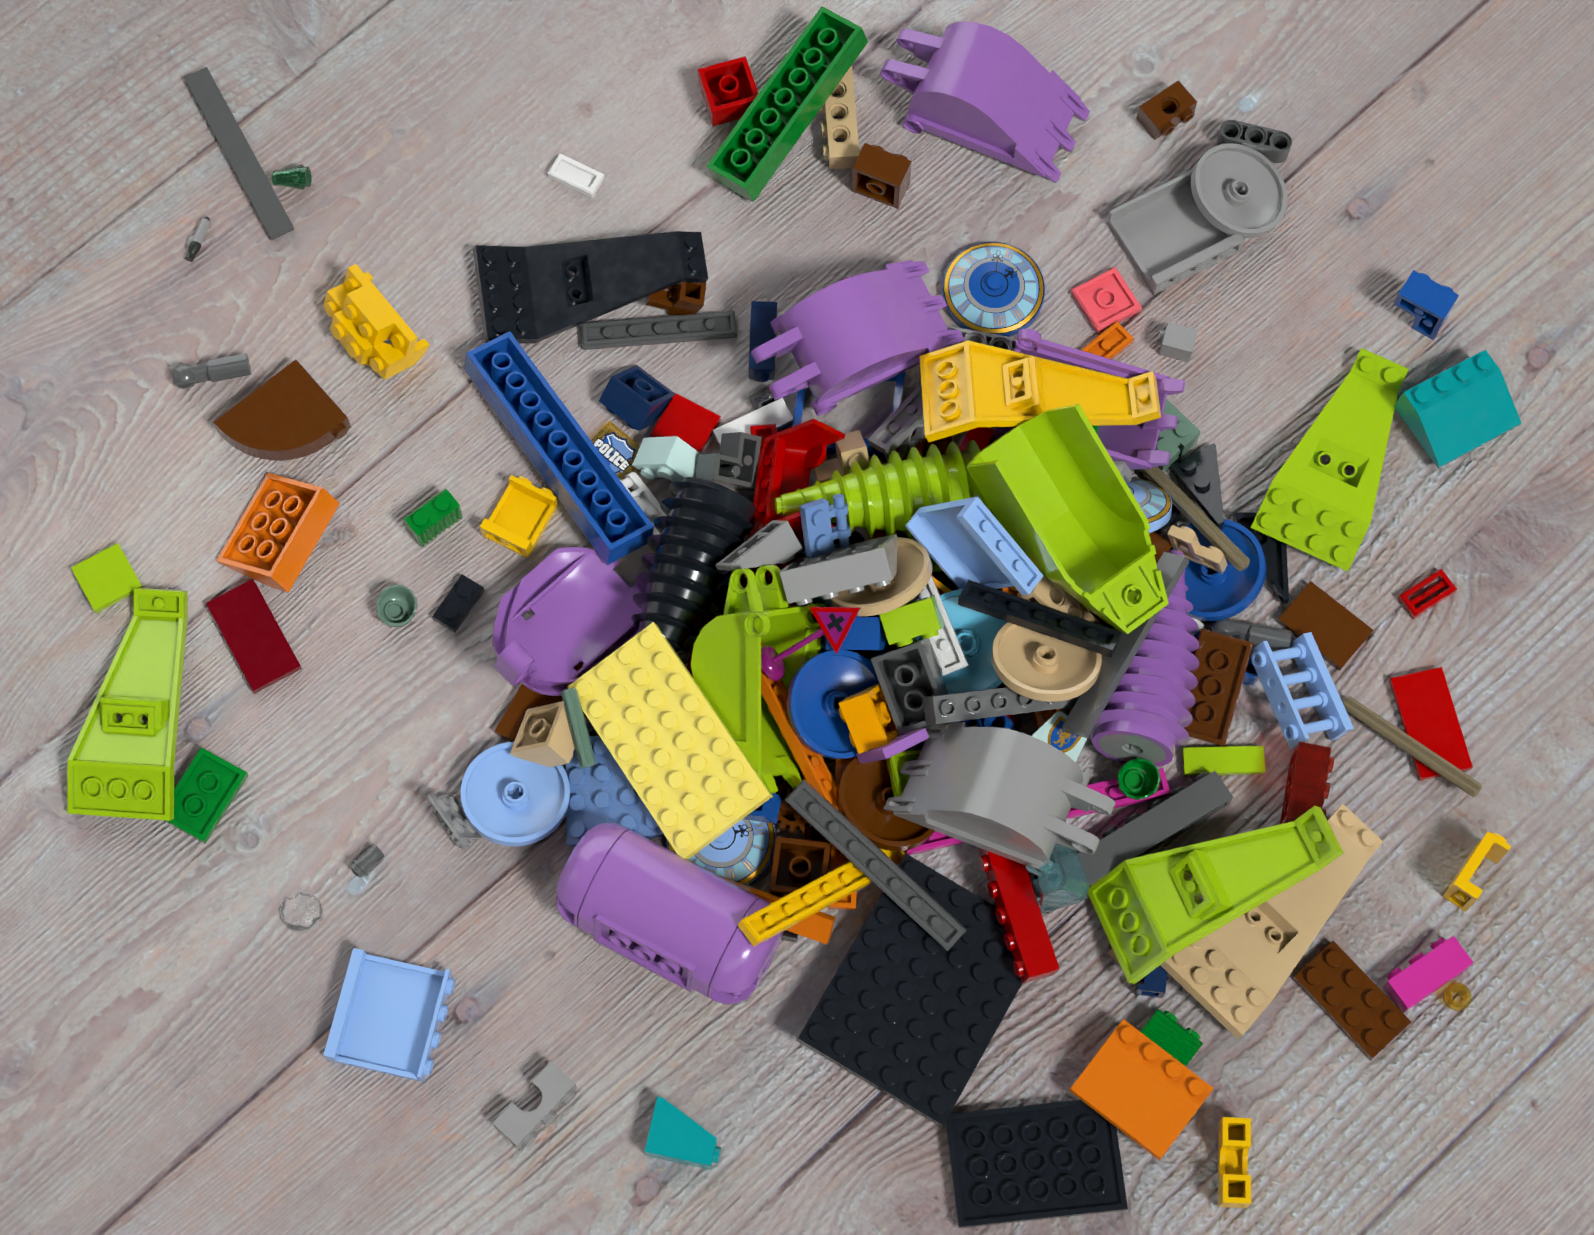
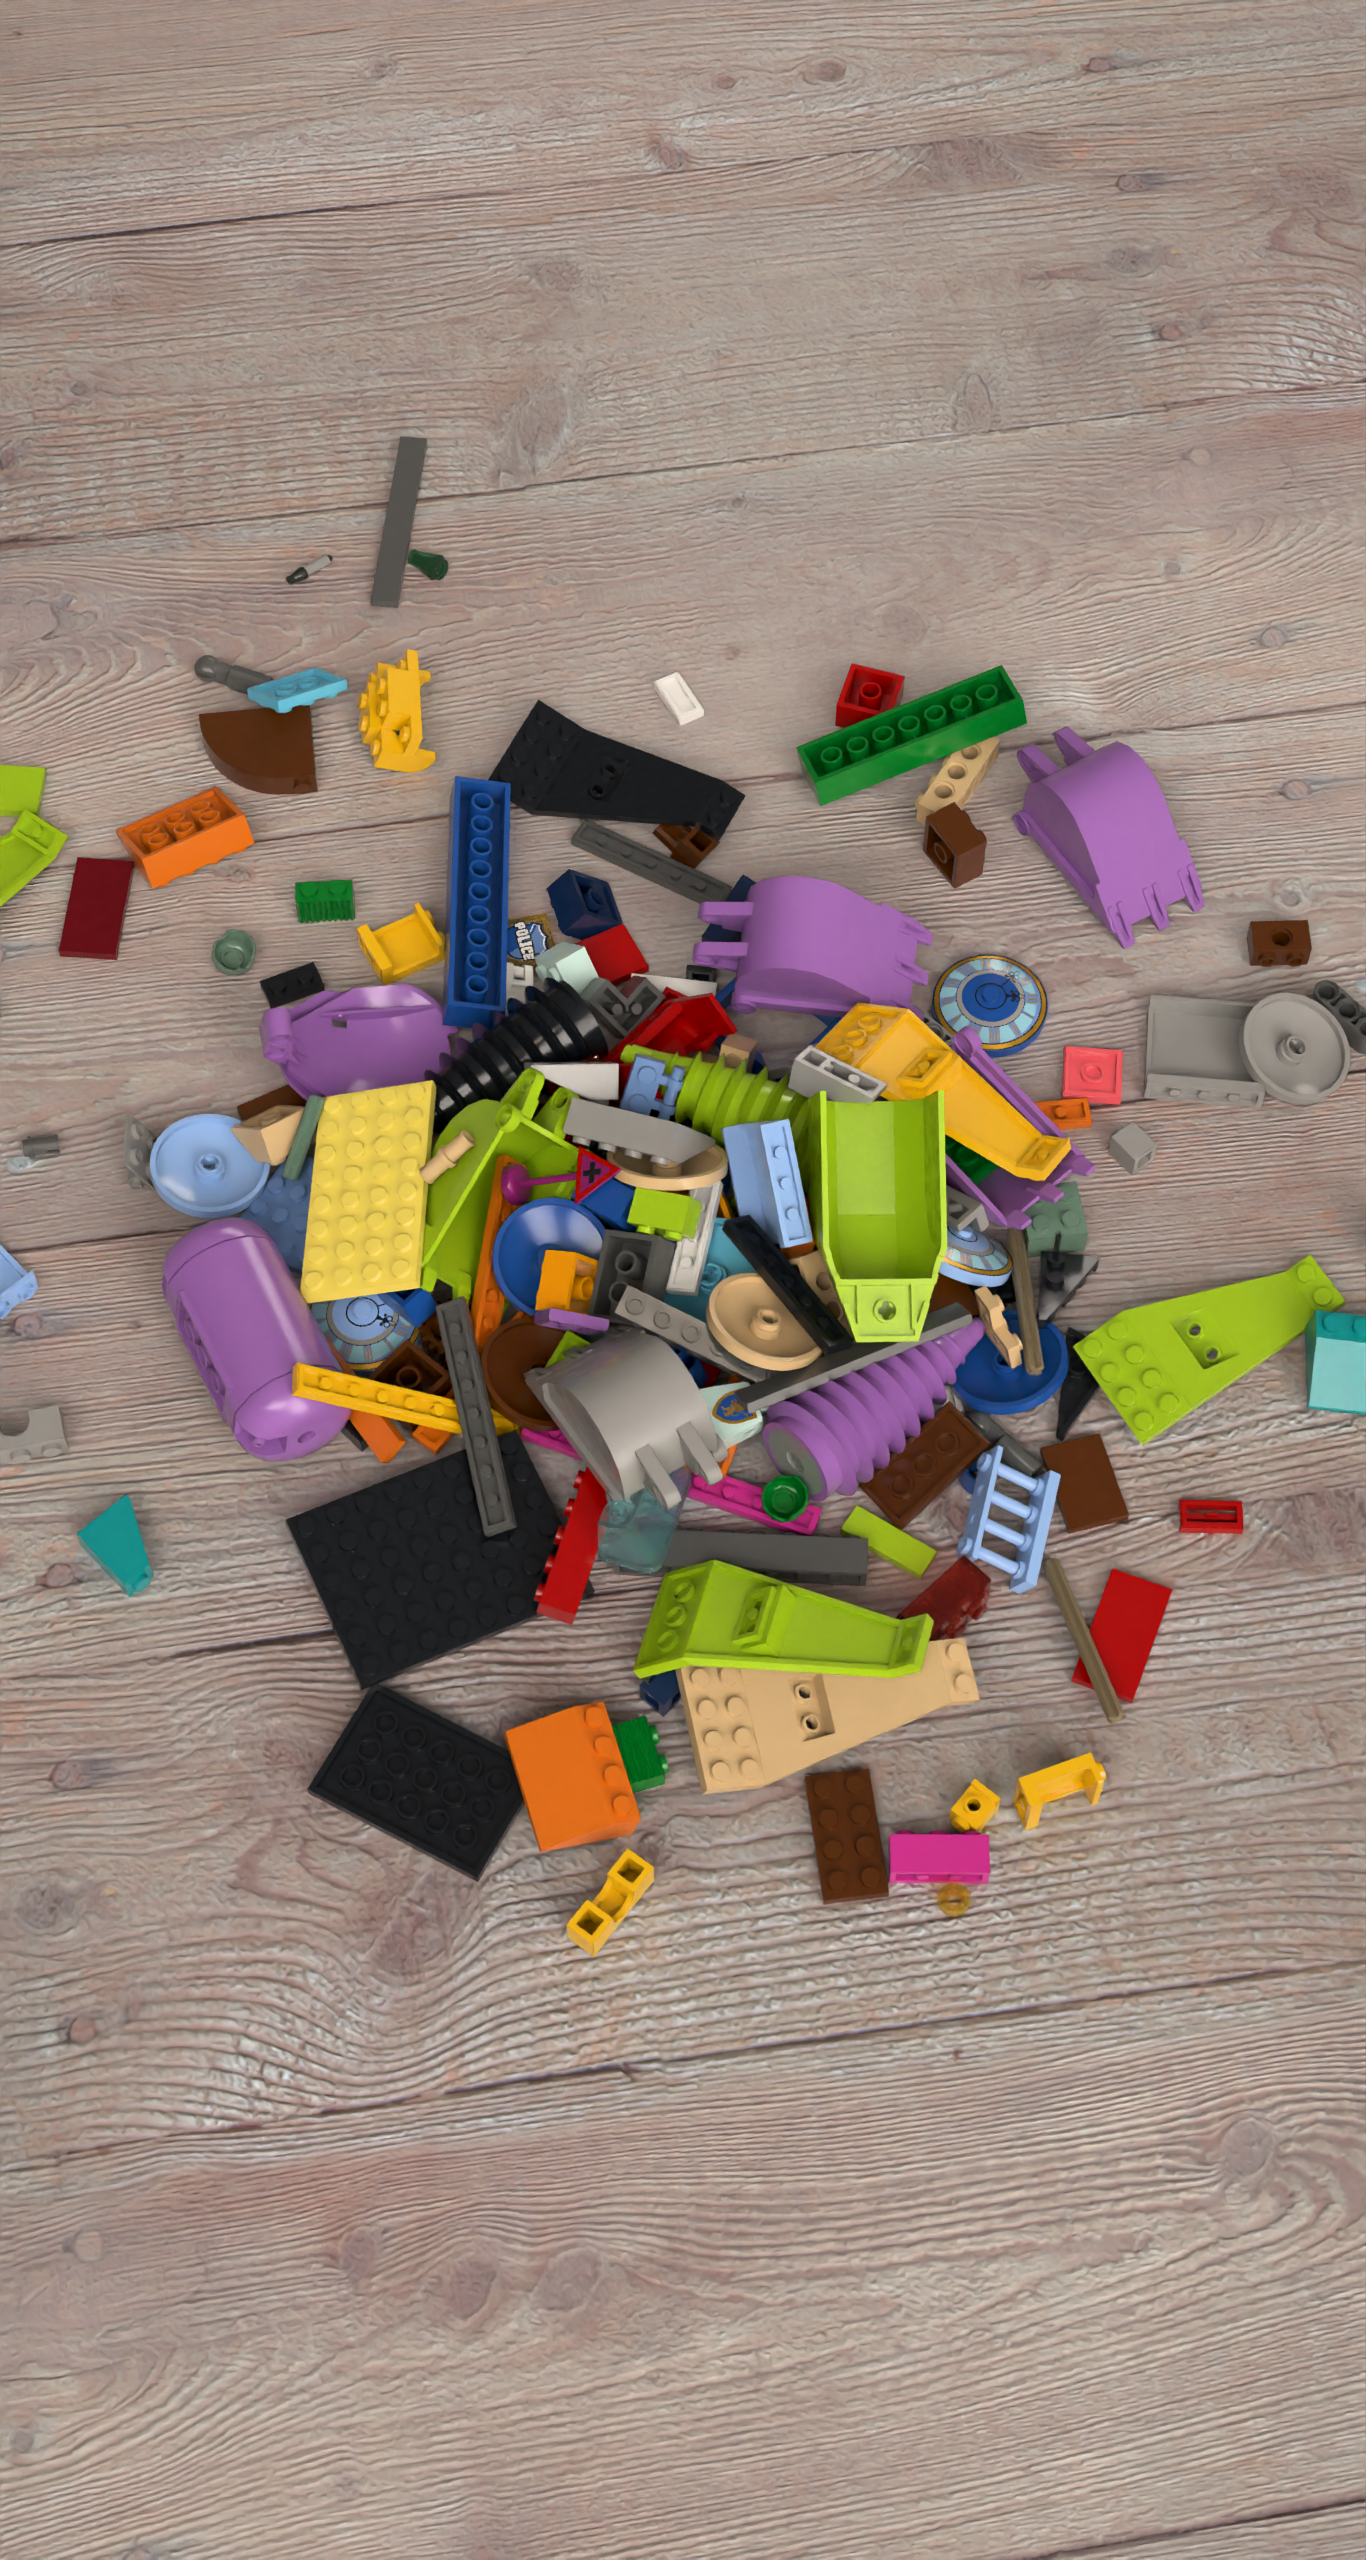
camera: 35 degrees right, 10 degrees down
(276, 352) = (297, 689): none -> medium azure plate
(719, 680) = (447, 1157): none -> tan pin
(967, 437) = (818, 1072): none -> light grey slope
(1417, 929) = (982, 1799): none -> yellow brick

